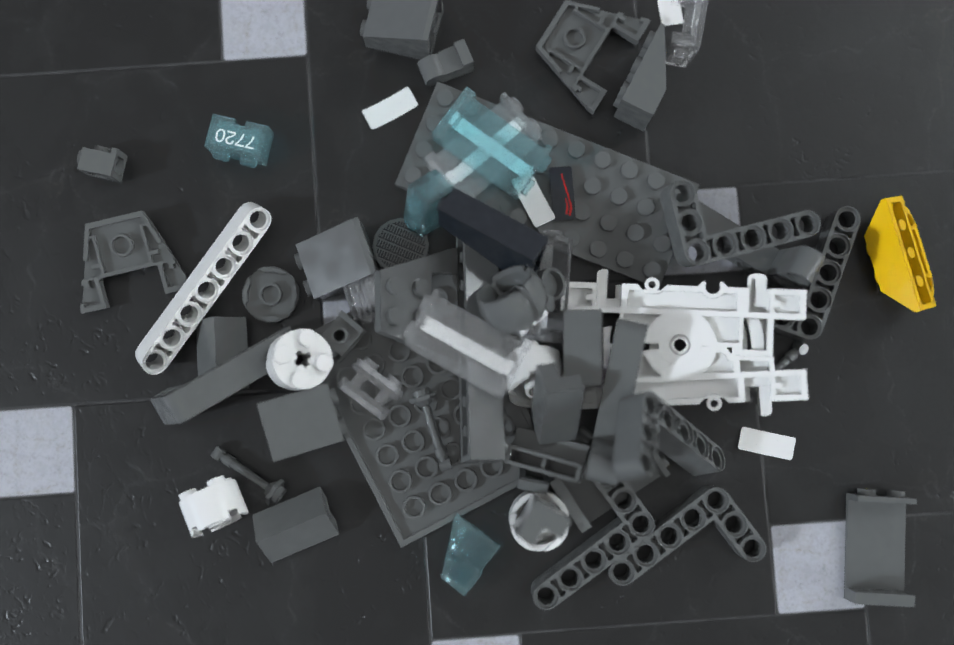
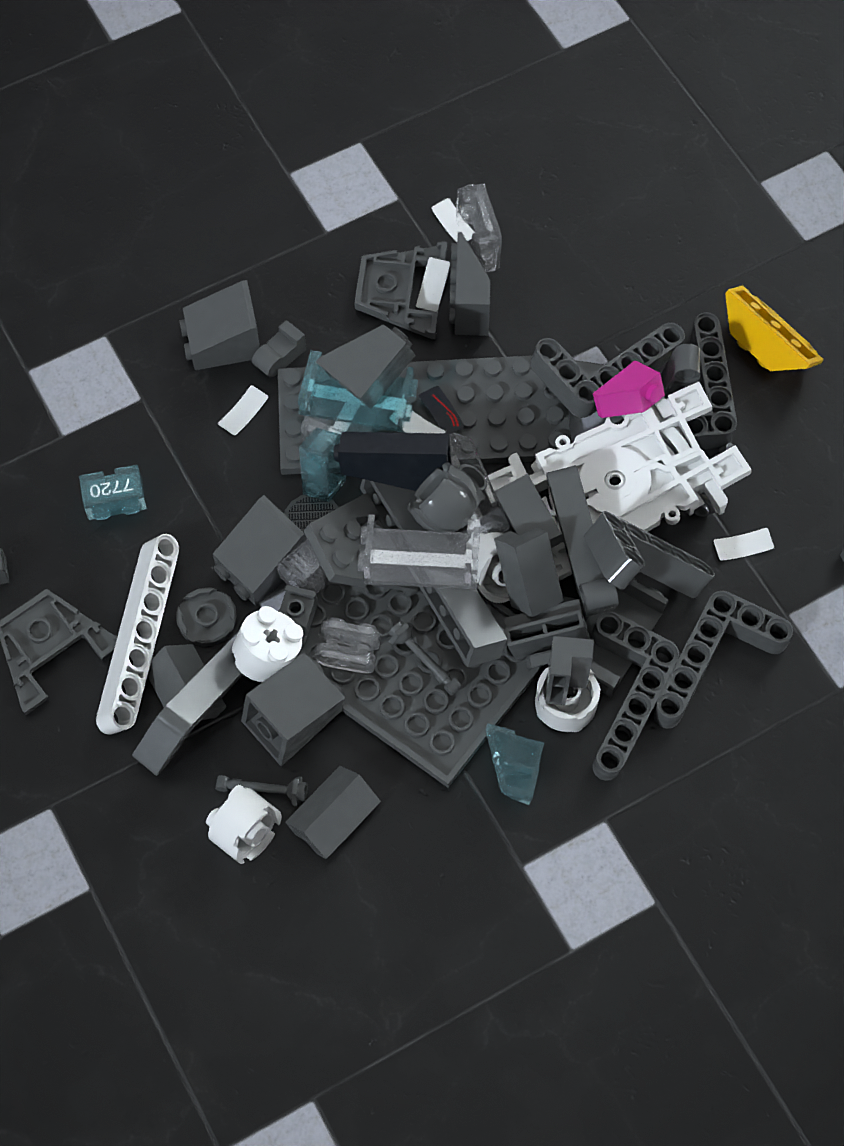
camera: 25 degrees left, 20 degrees down
(508, 131) = (369, 363): none -> dark grey slope
(617, 58) = (433, 284): none -> white sticker
(737, 270) = (629, 391): none -> dark pink slope

